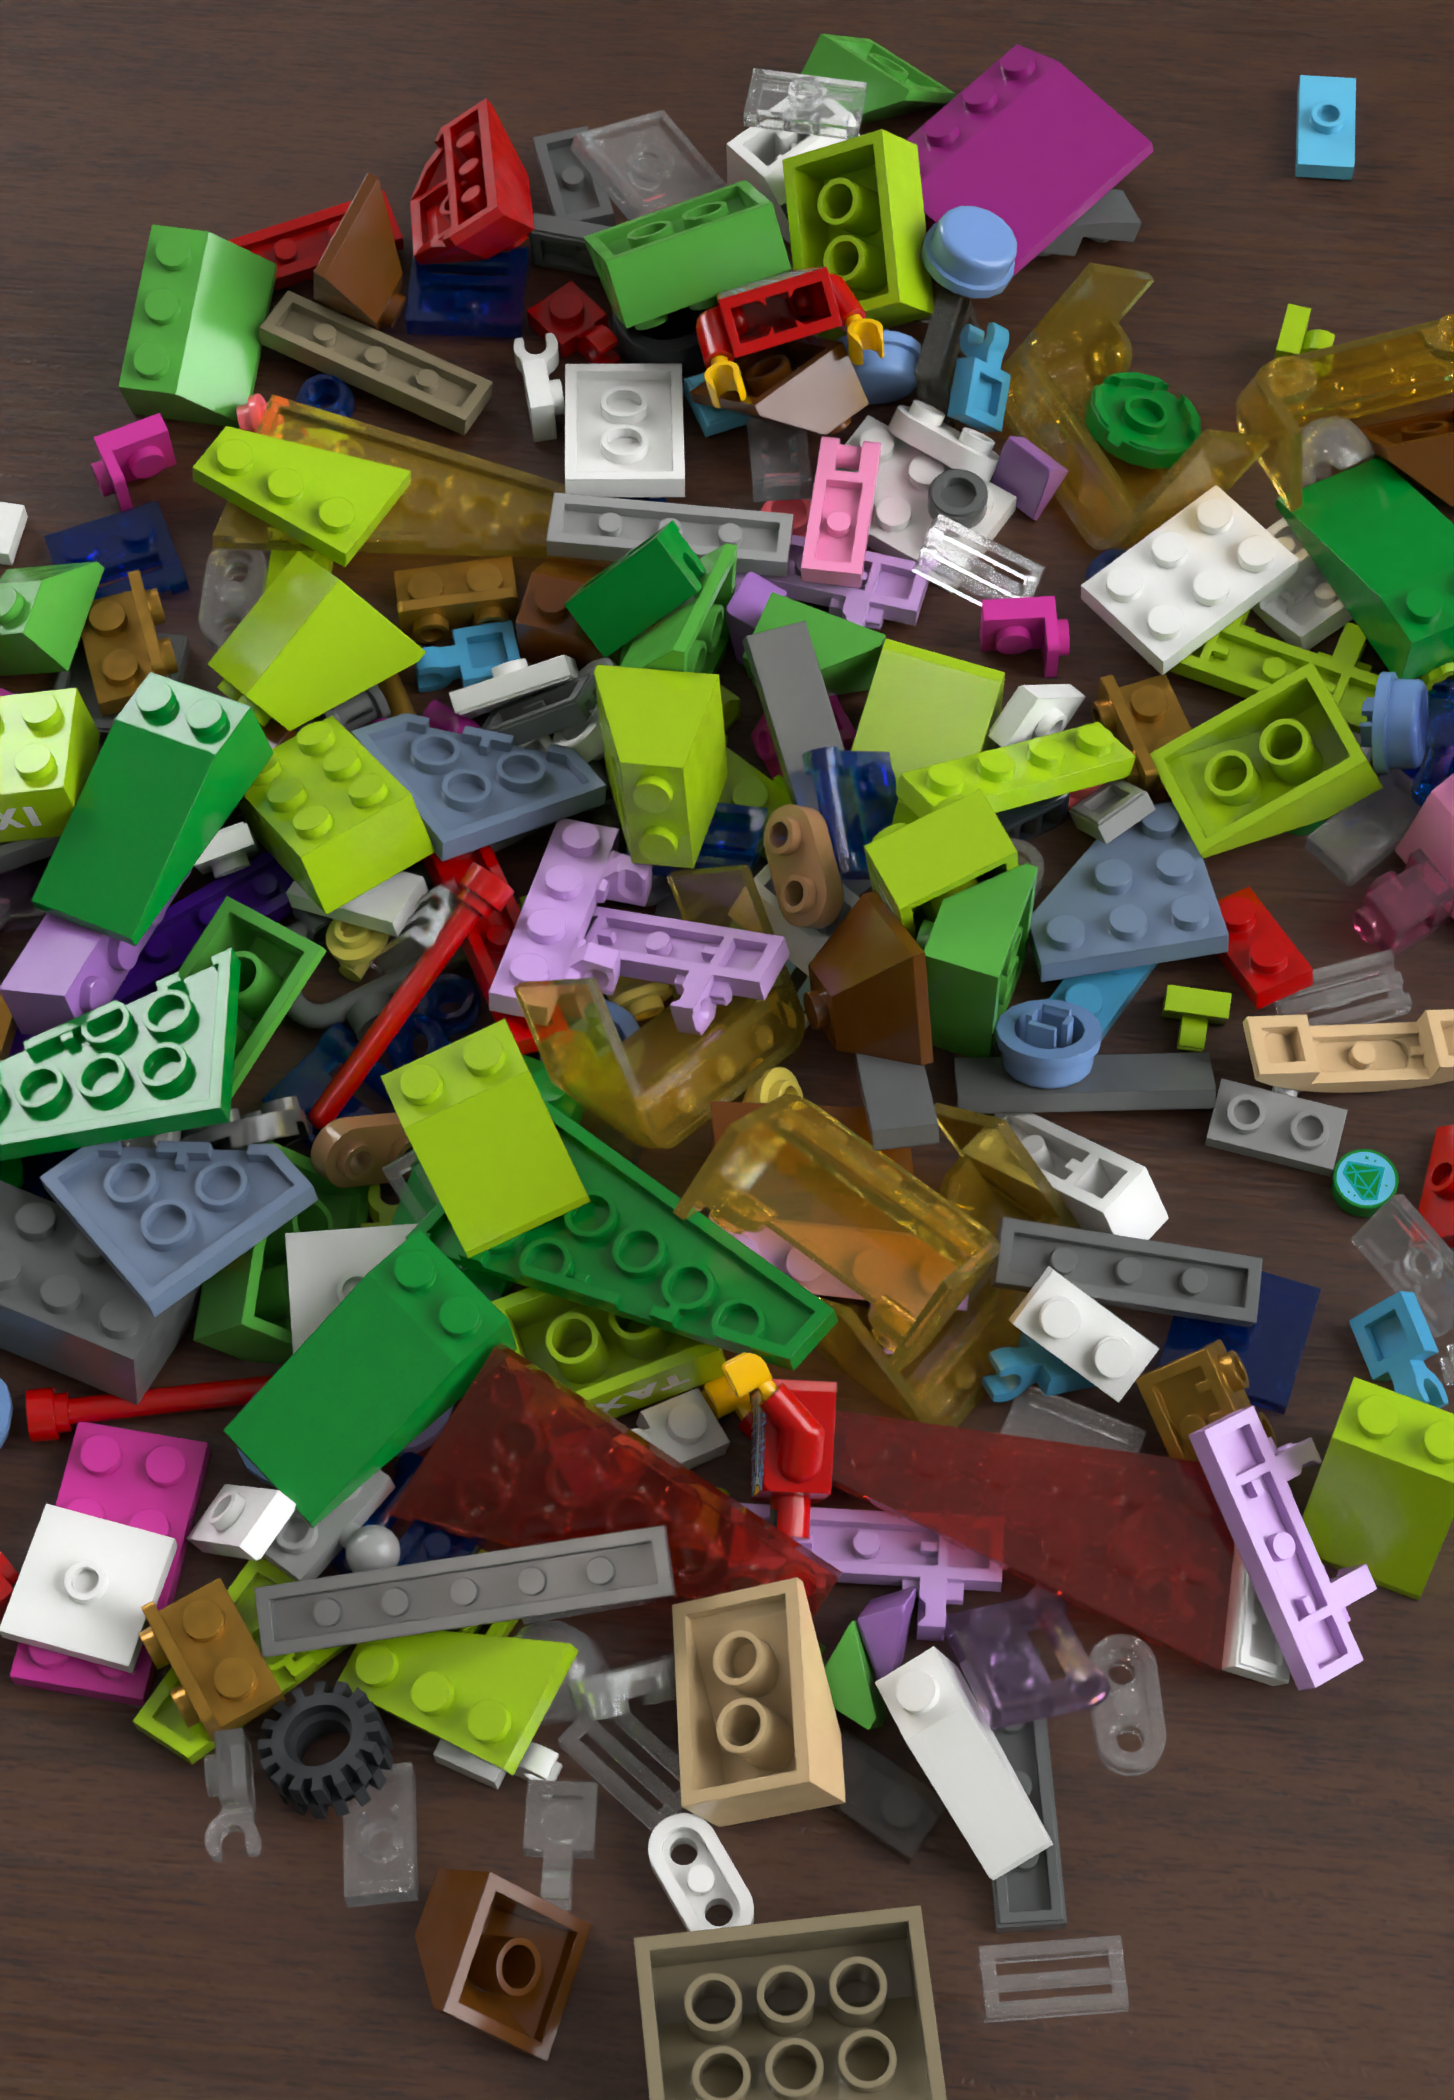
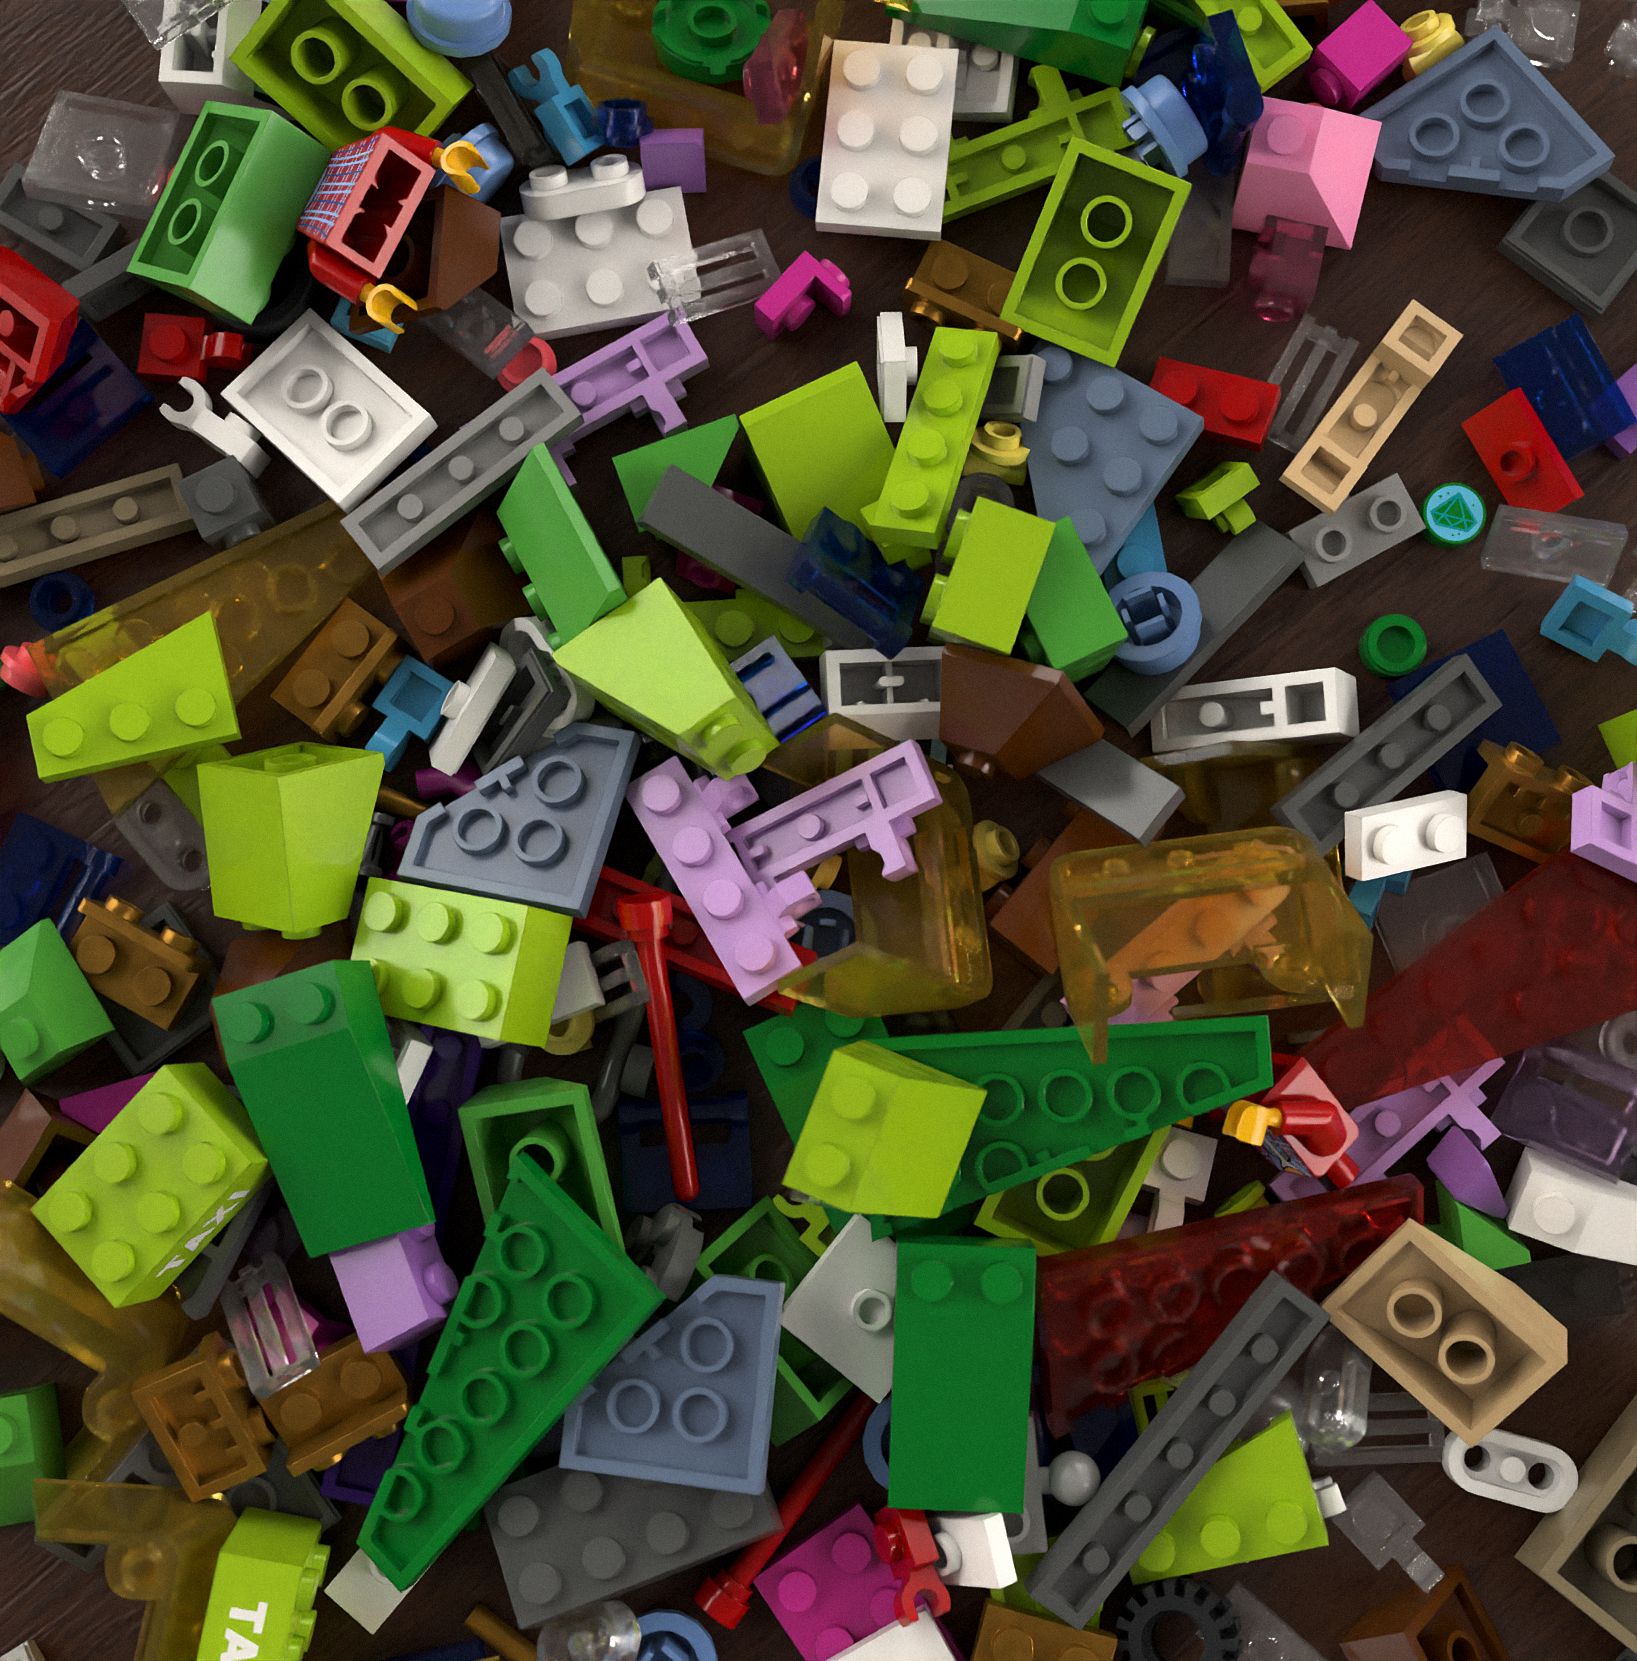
camera: 45 degrees left, 20 degrees up
(208, 1483) = (909, 1549): none -> red plate
(358, 1147) = (754, 1182): medium nougat plate -> none
(496, 426) = (226, 504): none -> dark grey brick
(637, 590) = (504, 552): green hinge -> none
(746, 609) = (592, 476): medium lavender slope -> none
(804, 861) = (868, 668): medium nougat plate -> none
(840, 513) = (573, 328): bright pink plate -> none
(959, 497) = (646, 231): dark grey tile -> none
(1013, 418) = (622, 121): none -> clear blue plate
(1060, 844) = (998, 451): none -> light yellow plate
(1142, 461) = (777, 66): none -> clear pink plate
(1225, 1227) = (1392, 646): none -> green tile

